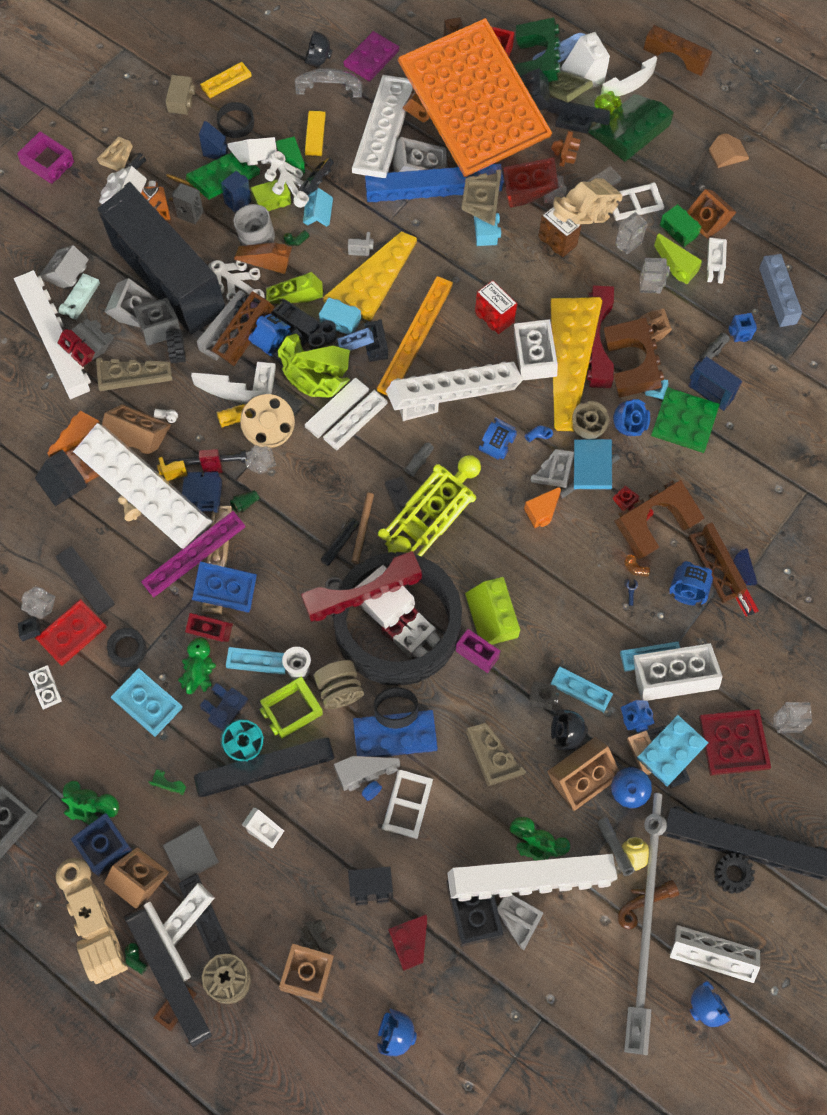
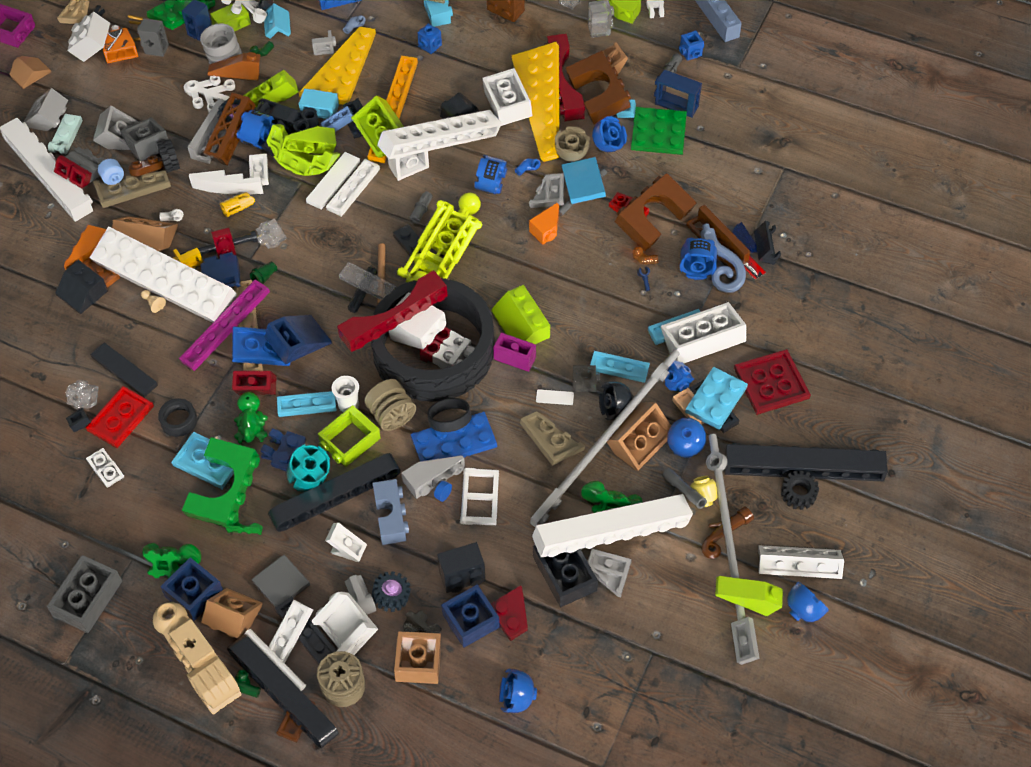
camera: 10 degrees left, 10 degrees down
(56, 214) = (28, 70): none -> medium nougat slope
(114, 353) = (110, 171): none -> light blue head
(151, 352) = (140, 168): none -> reddish brown plate
(151, 763) = (225, 508): none -> green arch
(162, 258) = (139, 81): black piece -> none
(243, 919) = (345, 622): none -> white panel
(261, 585) = (295, 337): none -> dark blue slope
(265, 895) = (358, 590): none -> light grey piece
(267, 420) = (270, 199): tan piece -> none
(296, 892) = (391, 591): none -> black wheel
(314, 820) = (388, 497): none -> sand blue arch
(346, 536) = (366, 281): none -> clear tile
(368, 939) = (470, 616): none -> dark blue brick
(396, 225) = (354, 22): none -> sand blue arm
(396, 356) = (375, 118): none -> lime slope
(470, 261) = (429, 38): none -> blue brick
(480, 828) = (554, 499): none -> light grey bar
(481, 351) = (457, 106): none -> black cylinder
(495, 307) = (462, 69): red brick -> none
(508, 707) = (554, 397): none -> white sticker
(654, 984) = (751, 594): none -> lime slope
(708, 560) = (709, 233): none -> sand blue plant
(765, 580) = (764, 243): none -> black hinge
(793, 717) = (819, 347): clear brick -> none

